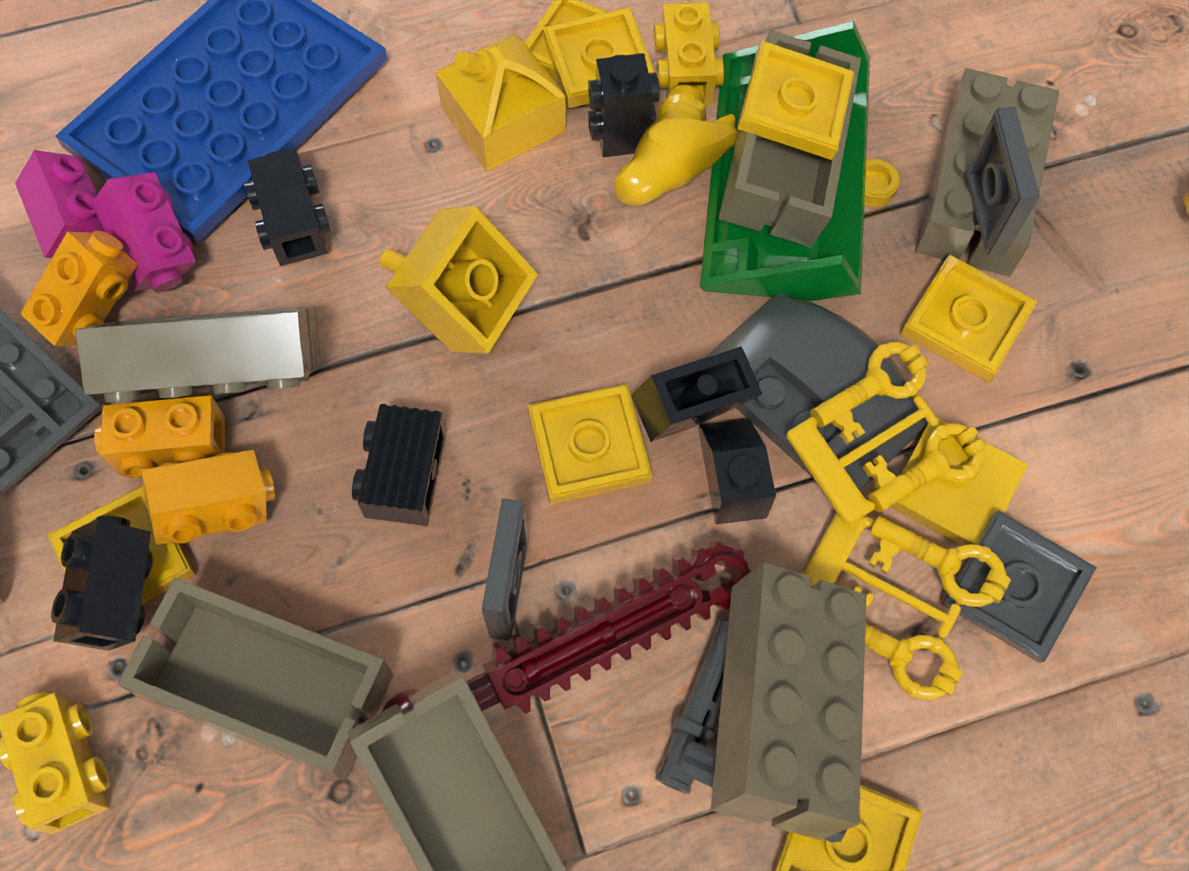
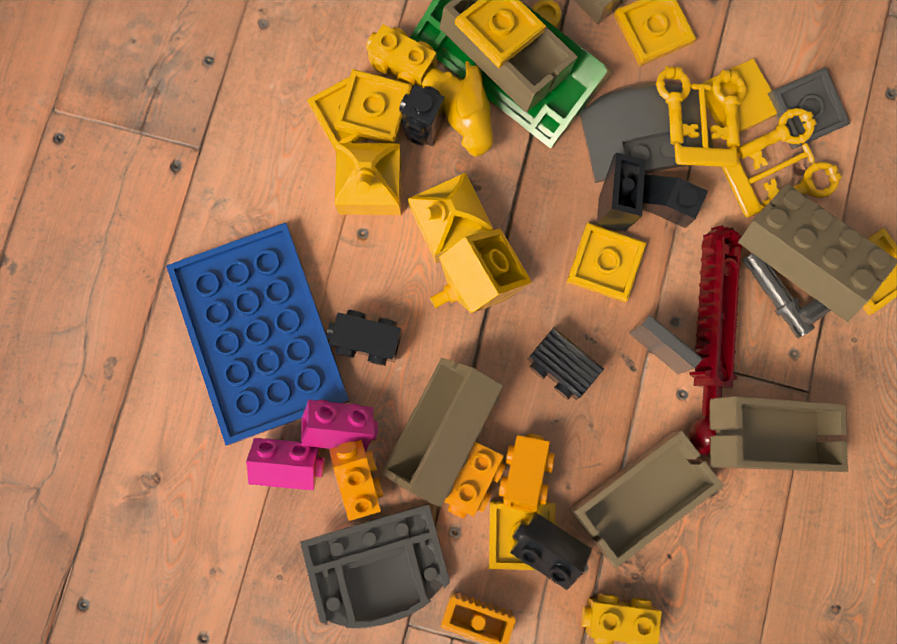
camera: 55 degrees left, 15 degrees up
(522, 200) = (448, 214): none -> yellow piece

